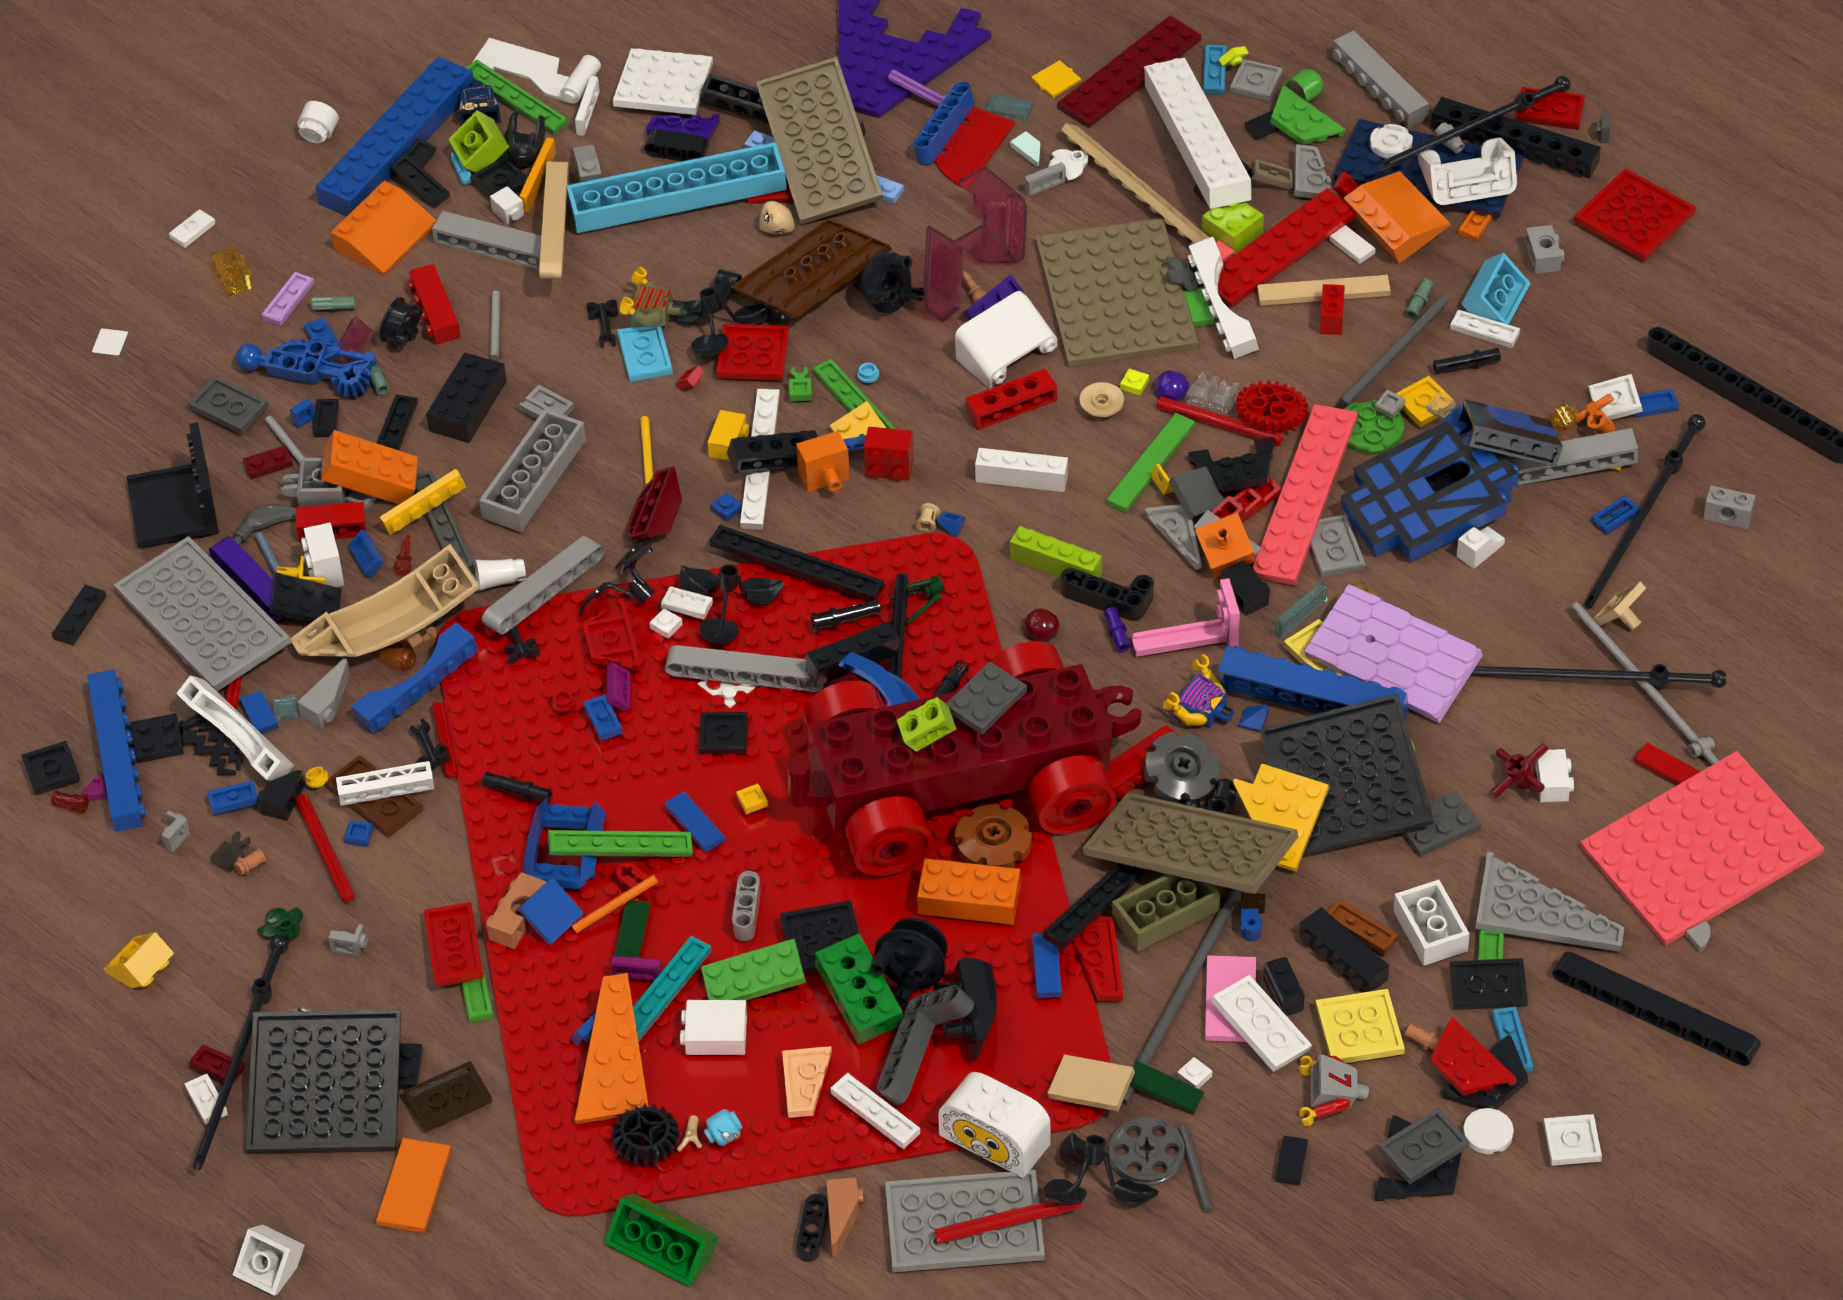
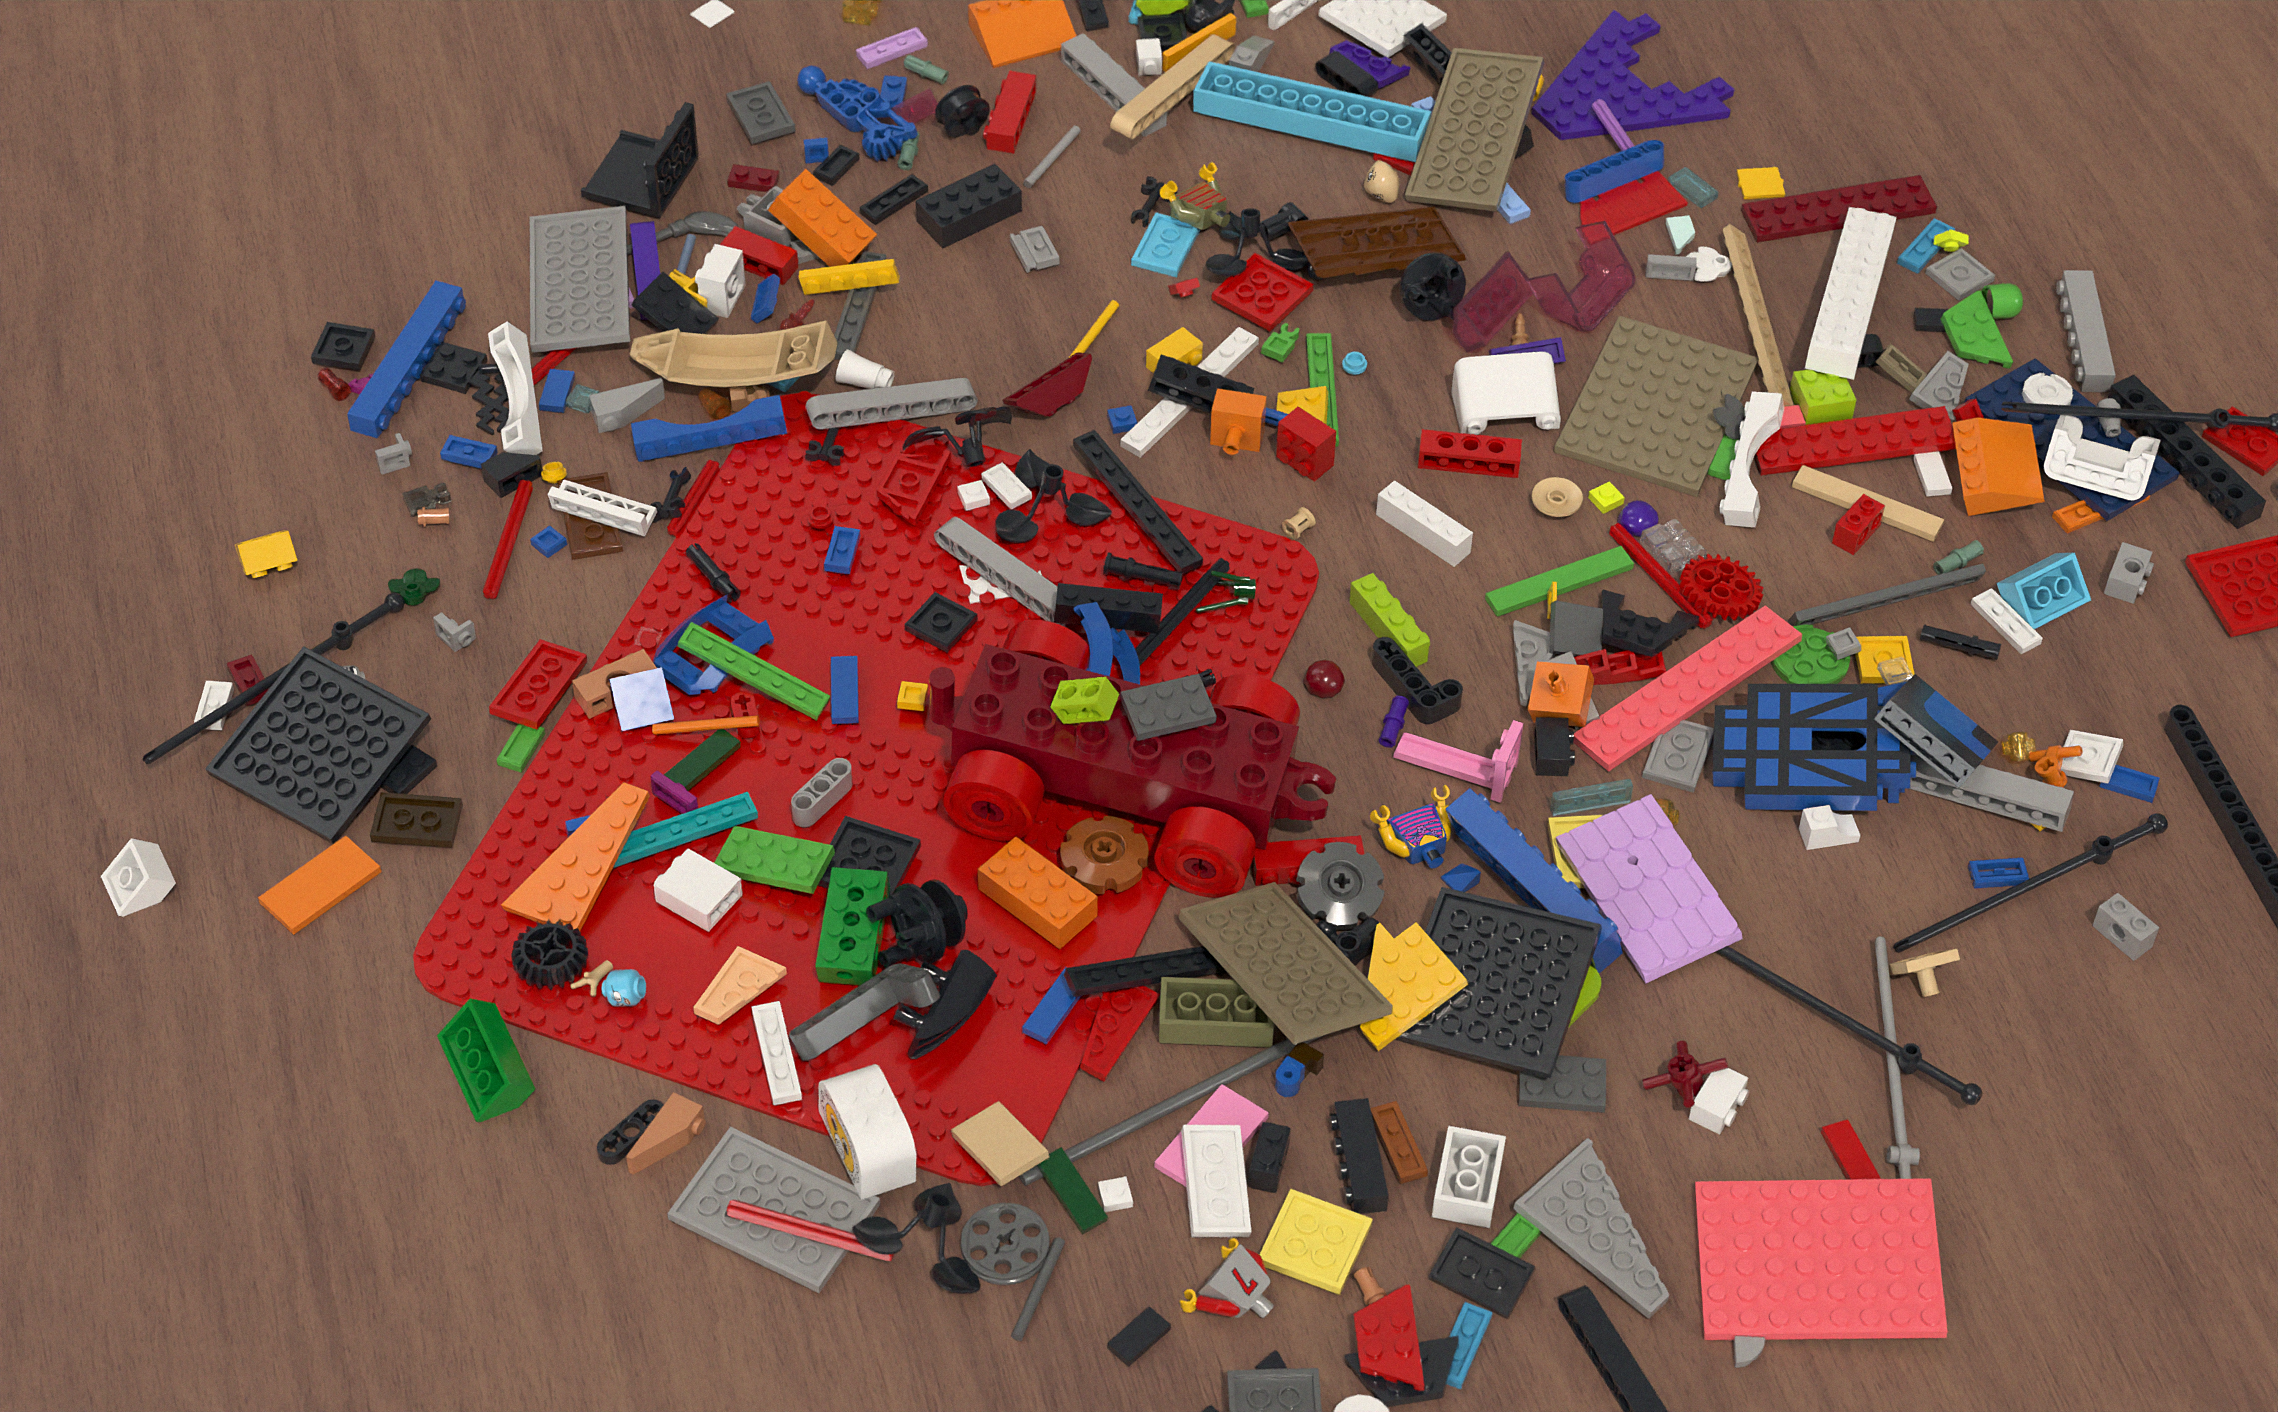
camera: 30 degrees right, 0 degrees up
(79, 615) = (482, 229): black plate -> none
(285, 439) = (785, 163): light grey piece -> none
(532, 470) = (970, 297): light grey brick -> none
(618, 687) = (879, 529): magenta plate -> none
(951, 522) = (1319, 539): blue slope -> none

